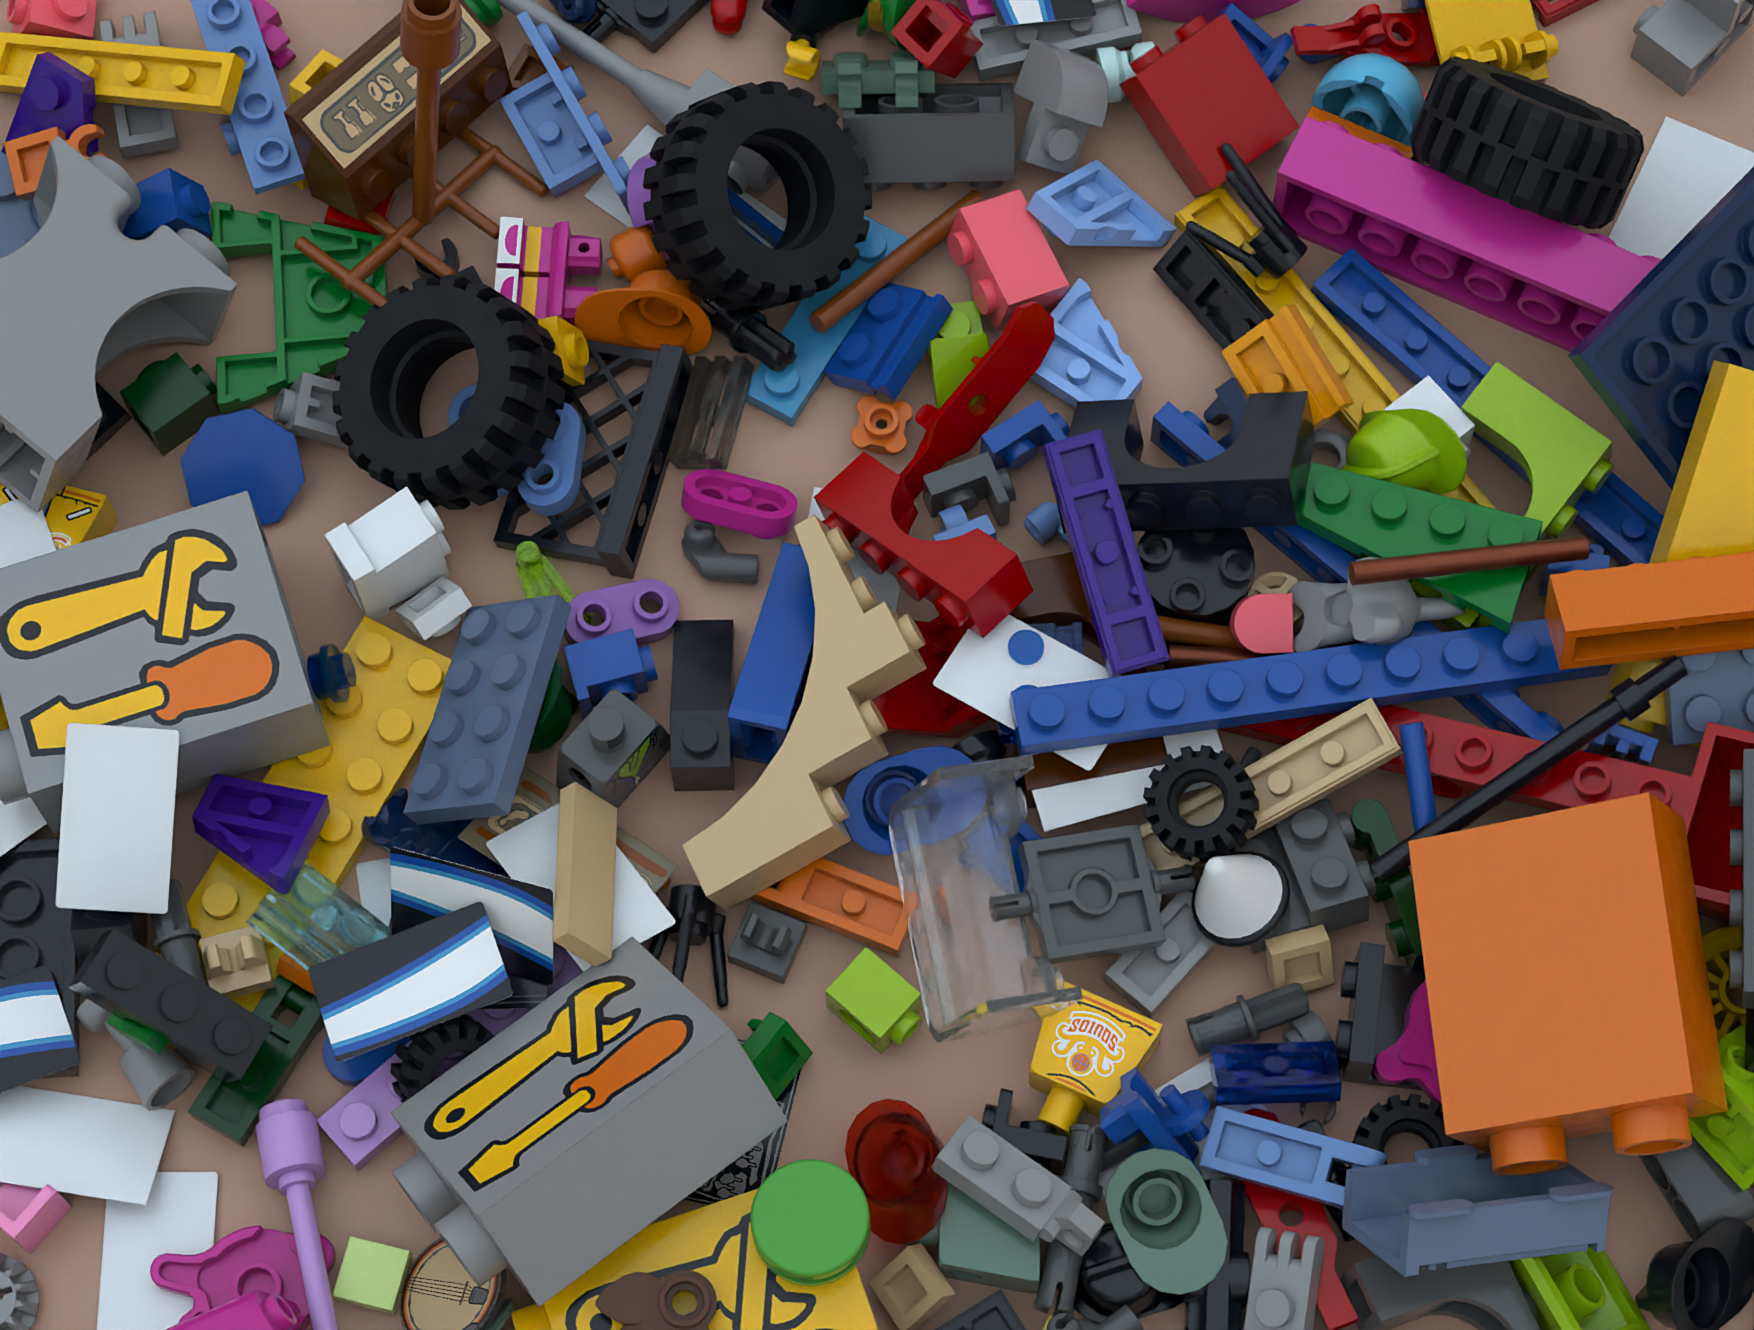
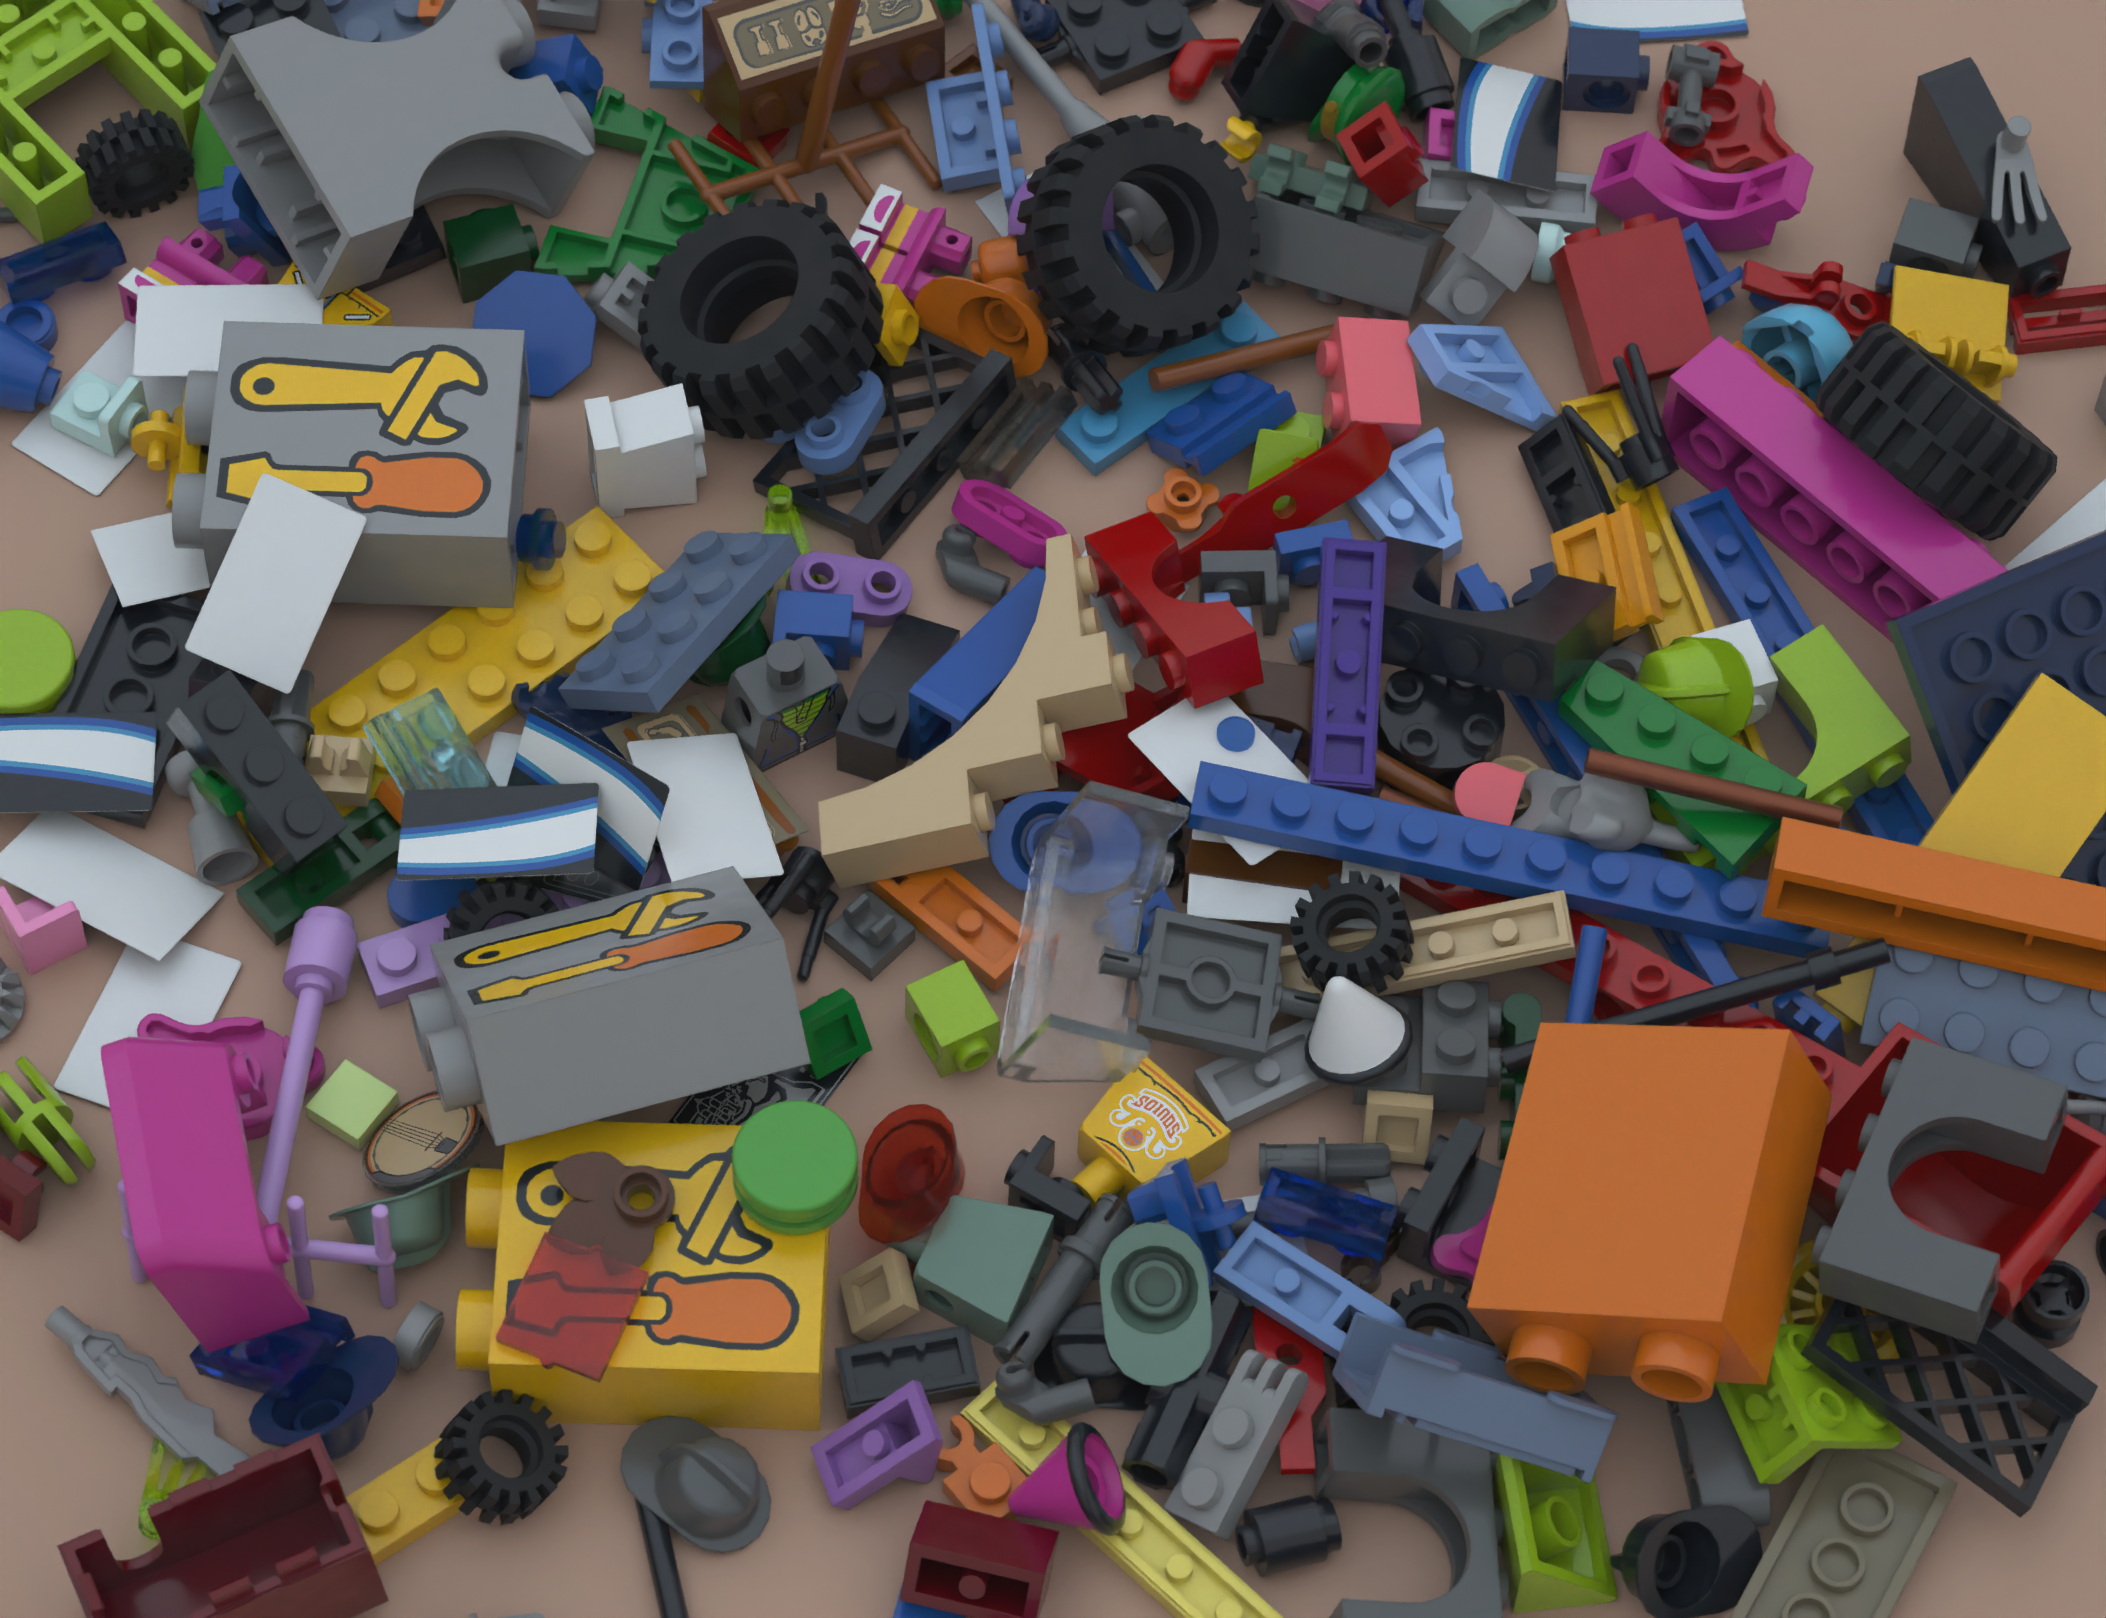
camera: 15 degrees right, 10 degrees down
(261, 826) = (415, 649): dark purple wing -> none
(434, 609) = (668, 522): white plate -> none
(585, 874) = (710, 793): tan tile -> none
(1016, 1188) = (1017, 1222): light grey hinge -> none

